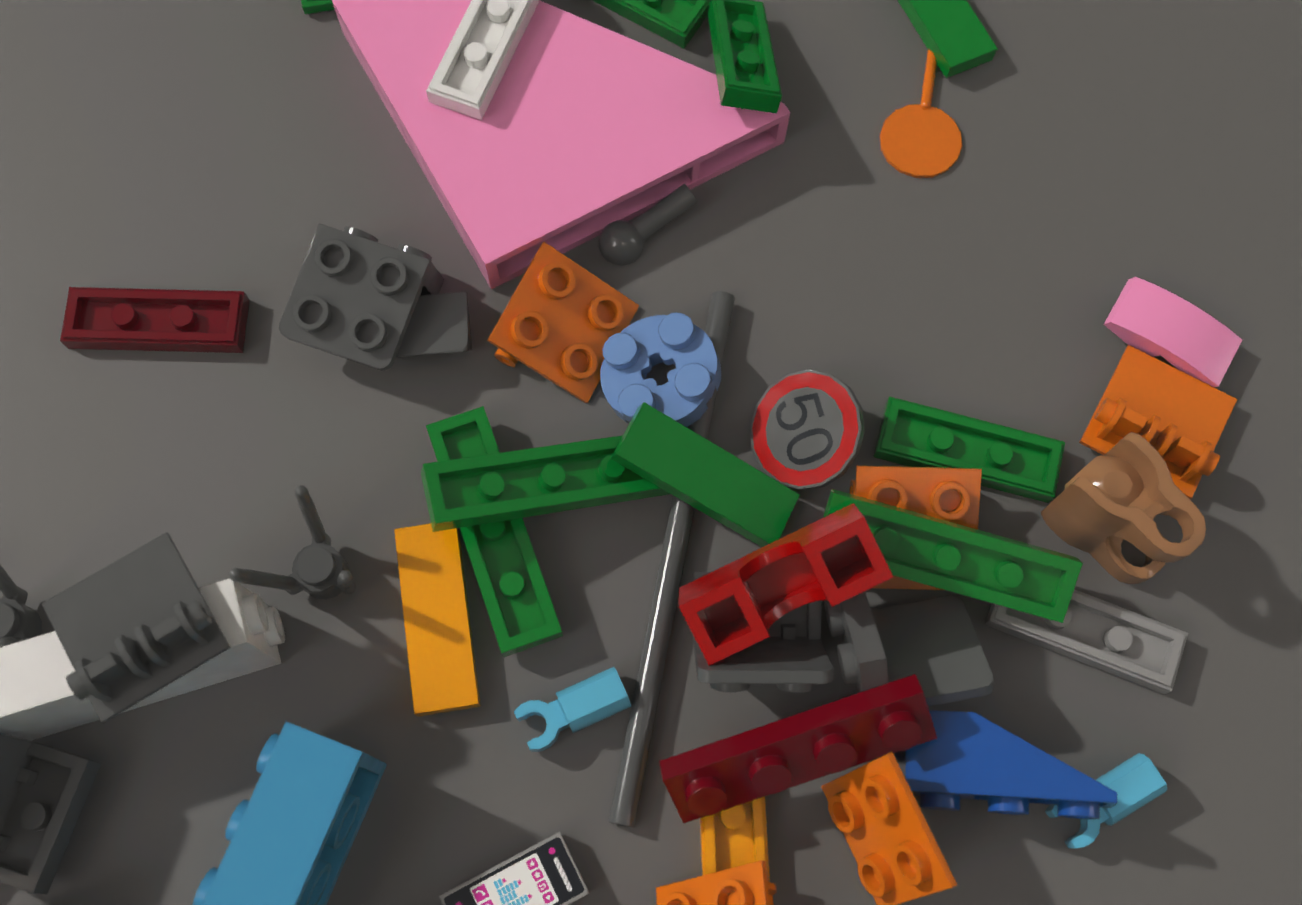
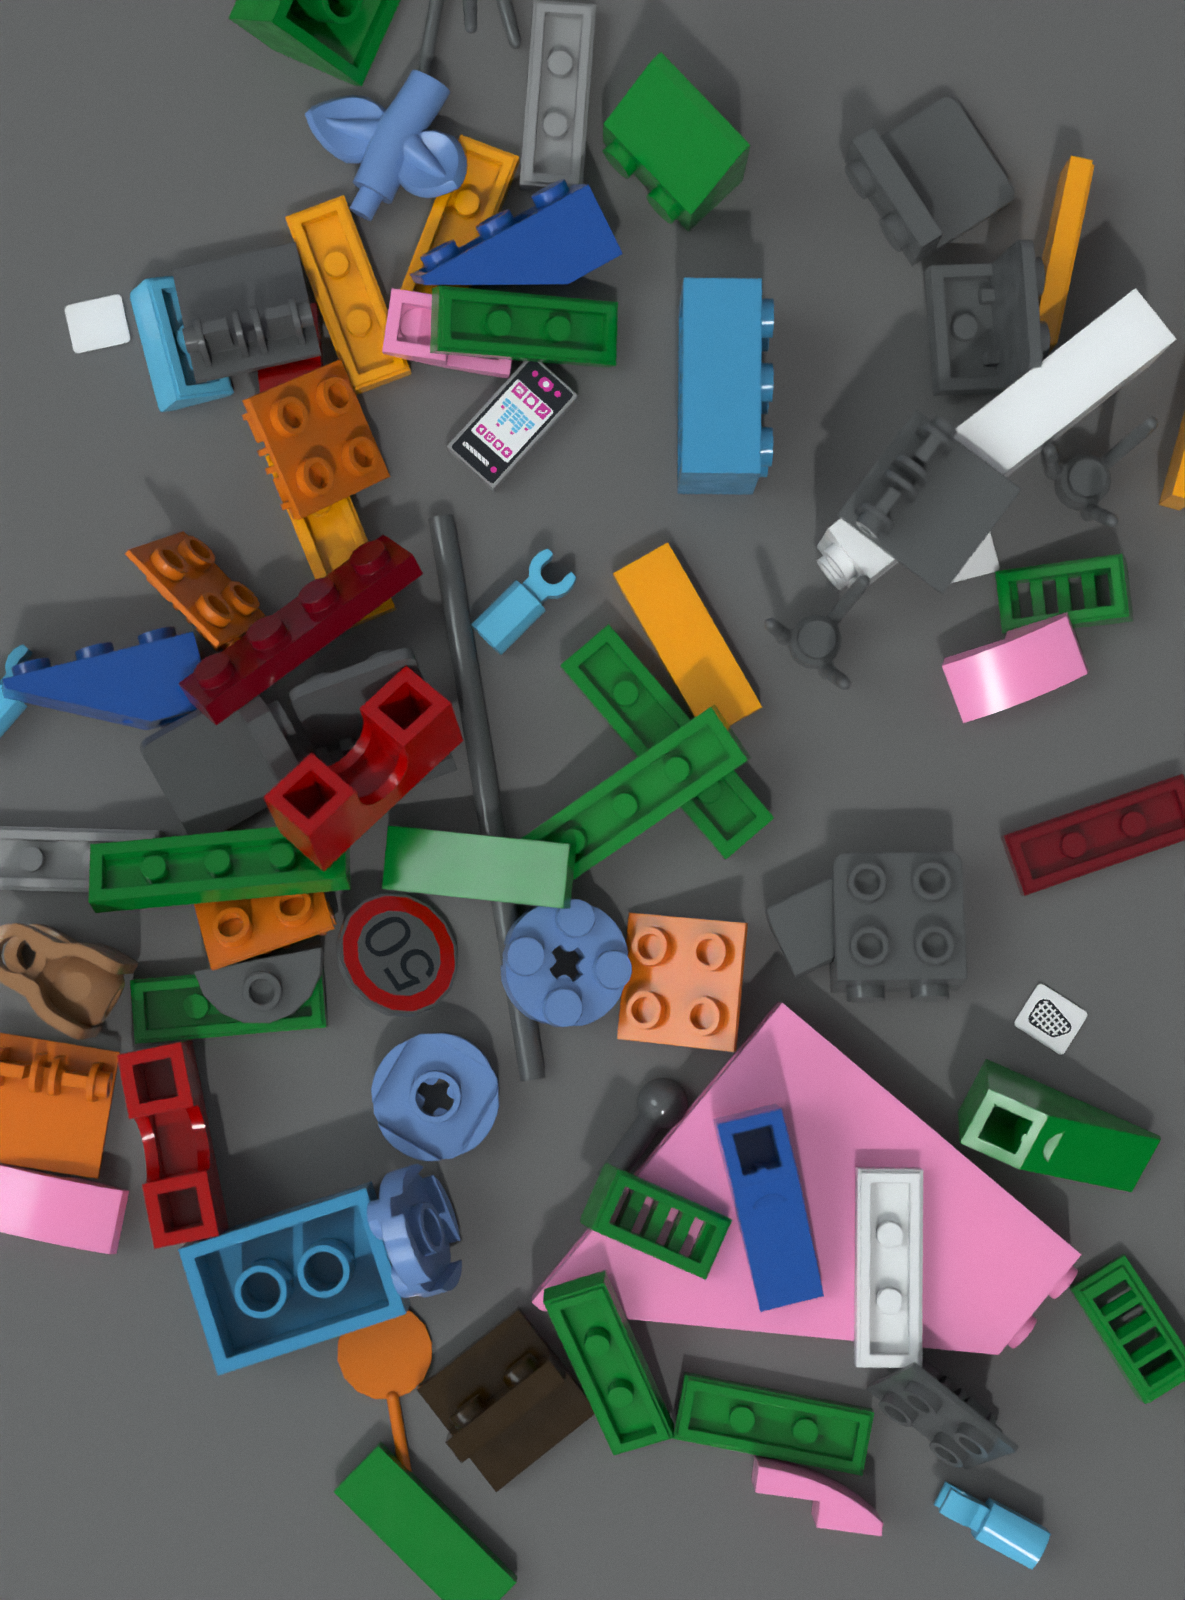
camera: 155 degrees right, 15 degrees up
(30, 511) = (1087, 569): none -> green slope
(159, 475) = (1016, 668): none -> bright pink slope
(273, 197) = (1050, 1019): none -> white sticker
(319, 105) = (1051, 1131): none -> green slope
(562, 110) = (769, 1206): none -> blue slope
(691, 155) = (606, 1197): none -> green slope
(815, 277) = (400, 1105): none -> medium blue plate
(838, 69) = (506, 1400): none -> dark brown bracket
(870, 195) = (416, 1230): none -> medium blue plate
(936, 440) = (263, 987): none -> dark grey plate
(983, 200) = (291, 1279): none -> dark azure brick
(1052, 377) = (181, 1166): none -> red arch

